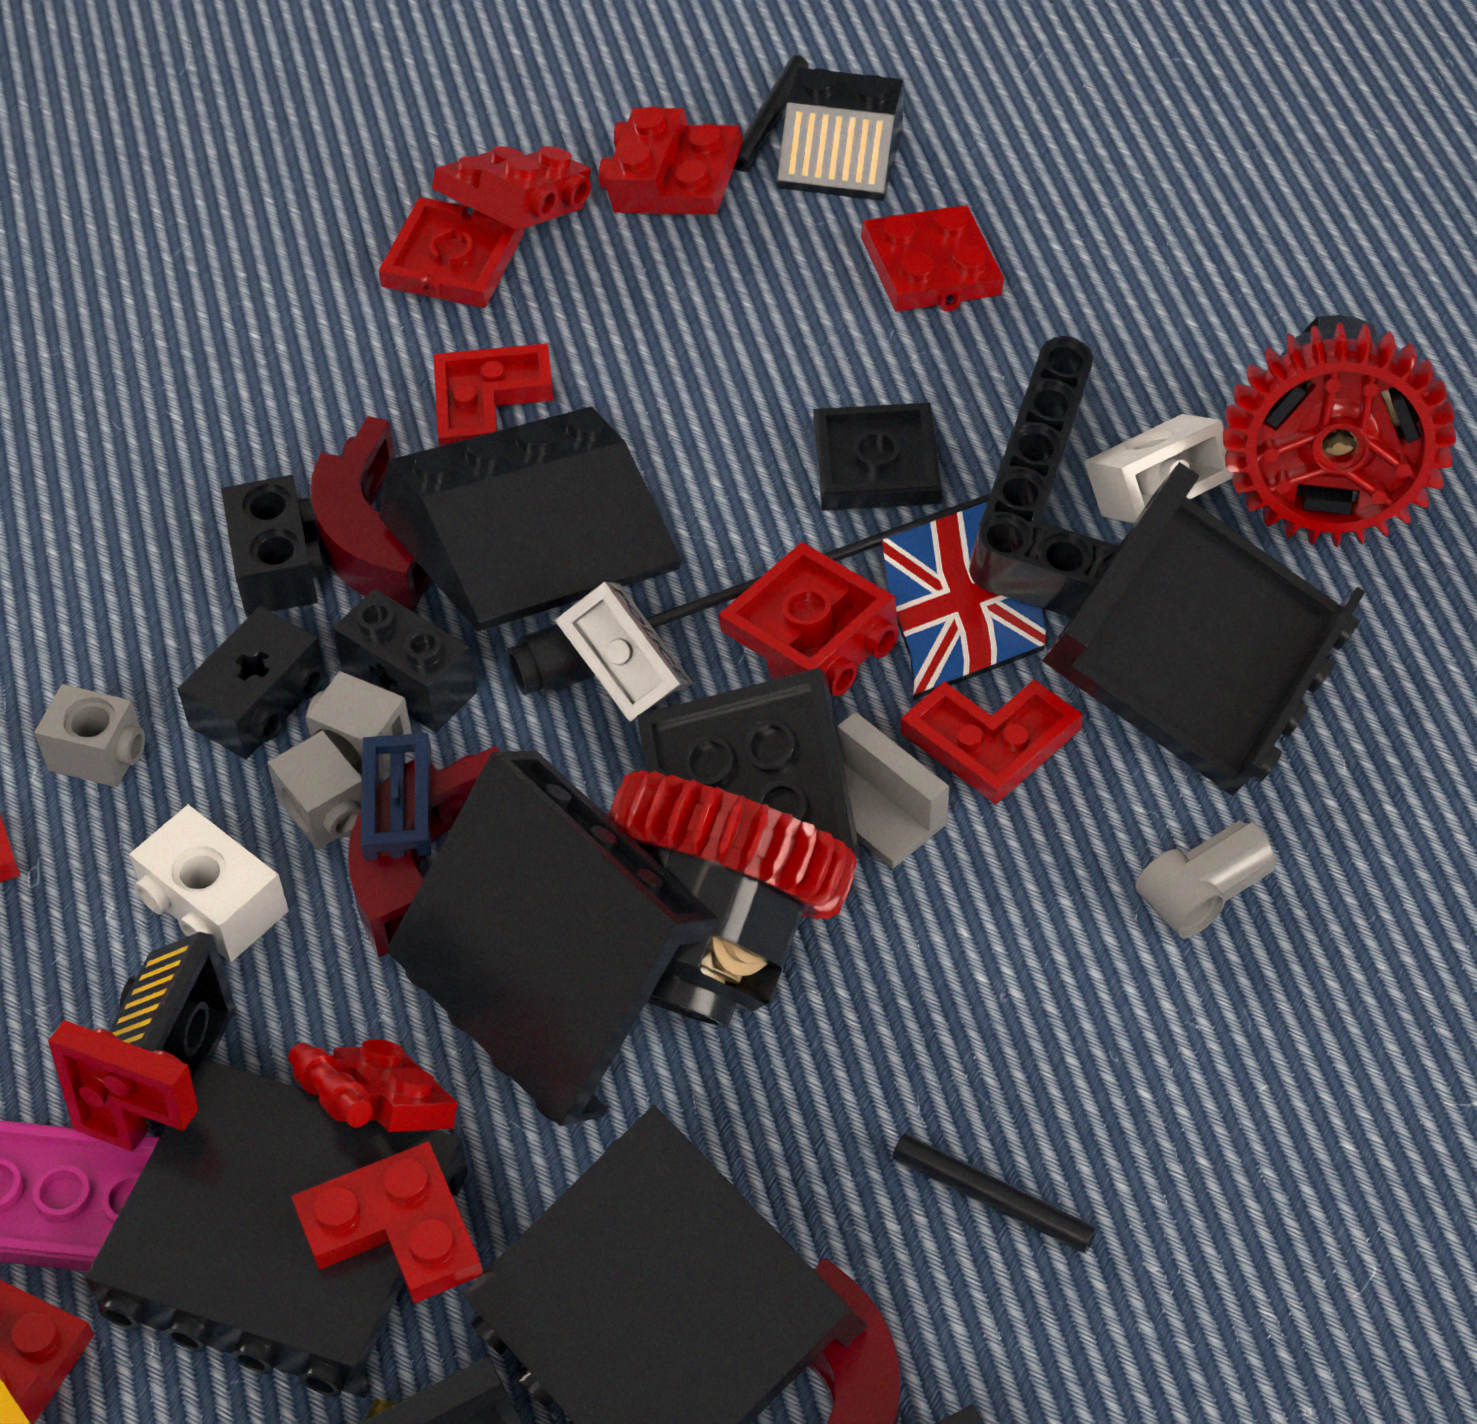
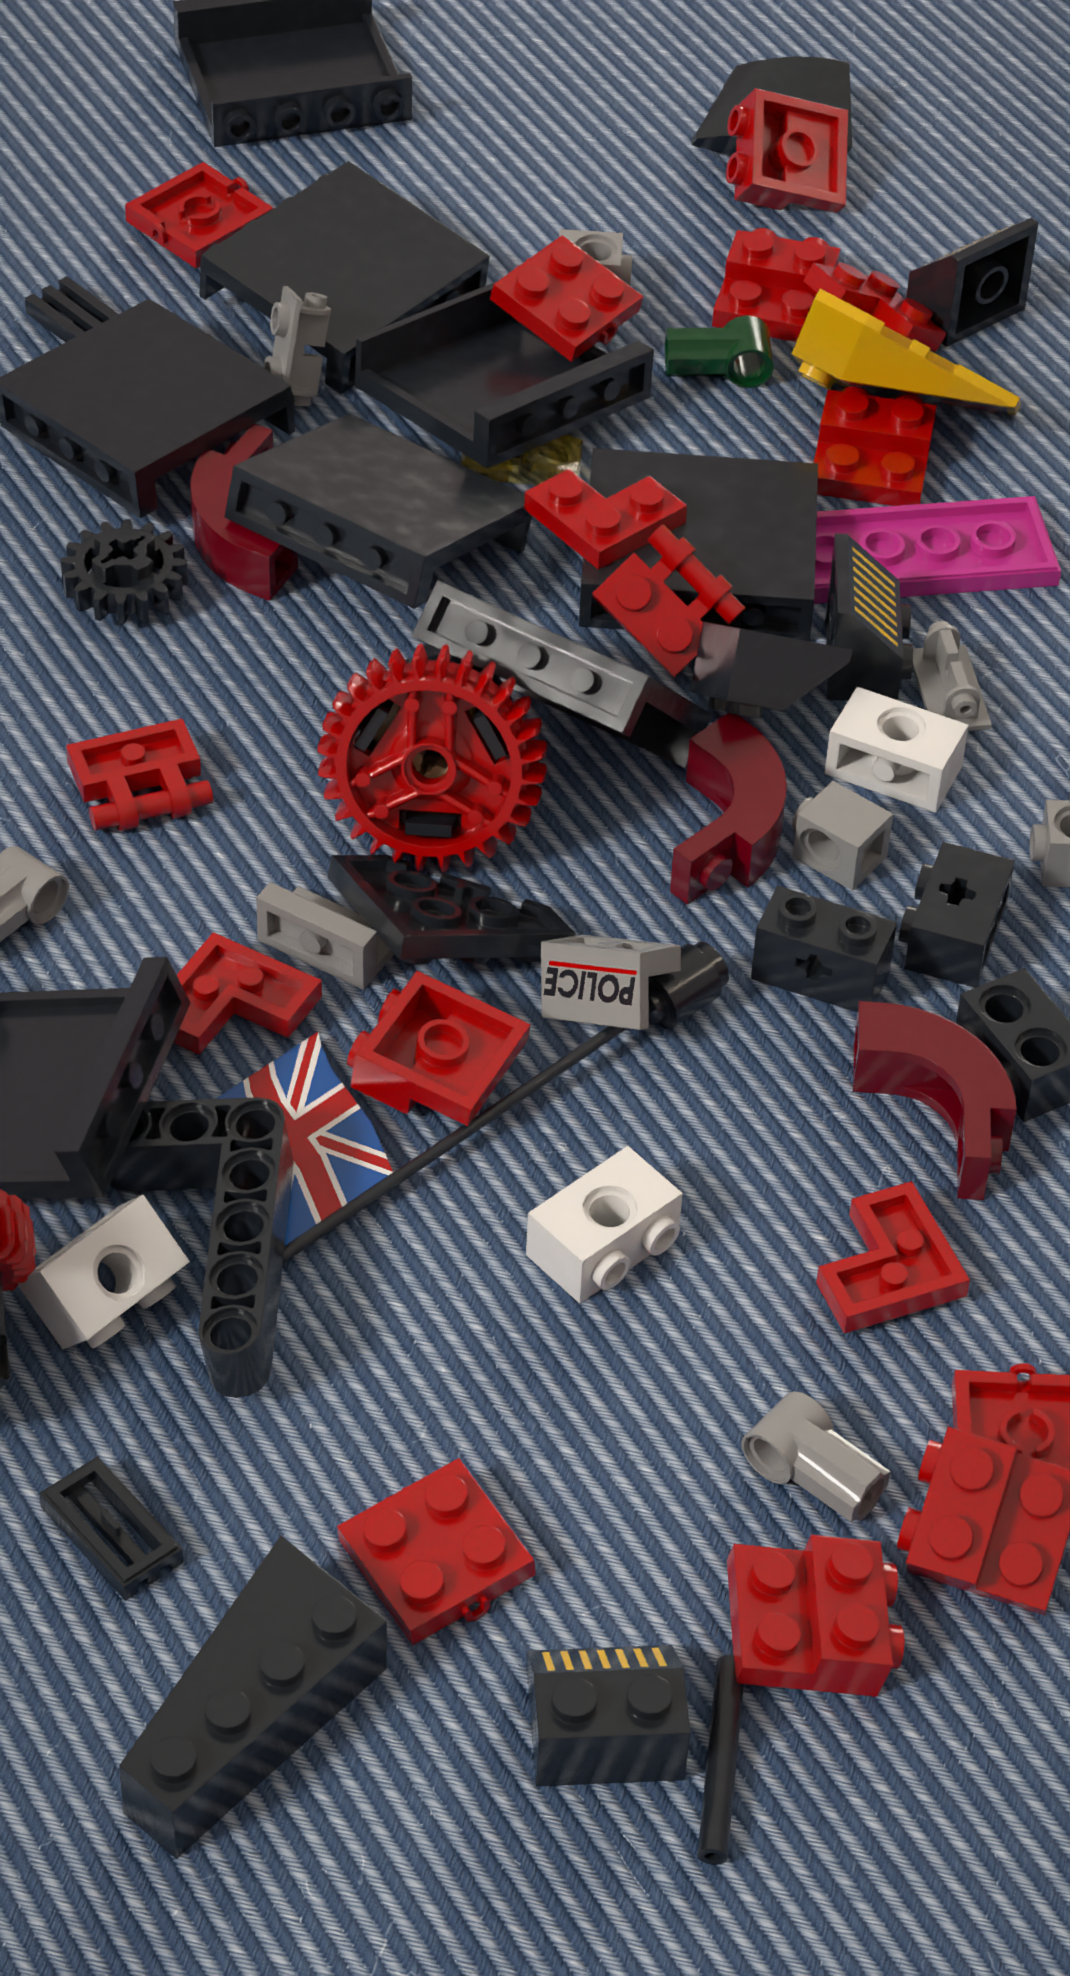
camera: 160 degrees right, 5 degrees down
(101, 964) = (948, 678): none -> light grey hinge
(118, 1084) = (873, 522): red plate -> none
(303, 962) = (759, 670): none -> black slope
(354, 711) = (844, 879): light grey brick -> none
(397, 839) = (770, 825): dark blue tile -> none
(527, 517) = (762, 1077): black slope -> none
(624, 268) = (801, 1446): none -> light grey piece
(715, 454) = (604, 1224): none -> white brick
(876, 456) = (427, 1266): black plate -> none
(995, 1193) = (151, 666): black piece -> none
(995, 1355) = (124, 571): none -> black gear
(1037, 1036) = (136, 761): none -> red plate
(1092, 170) = (251, 1697): none -> black wedge
(1169, 324) = (142, 1566): none -> black tile

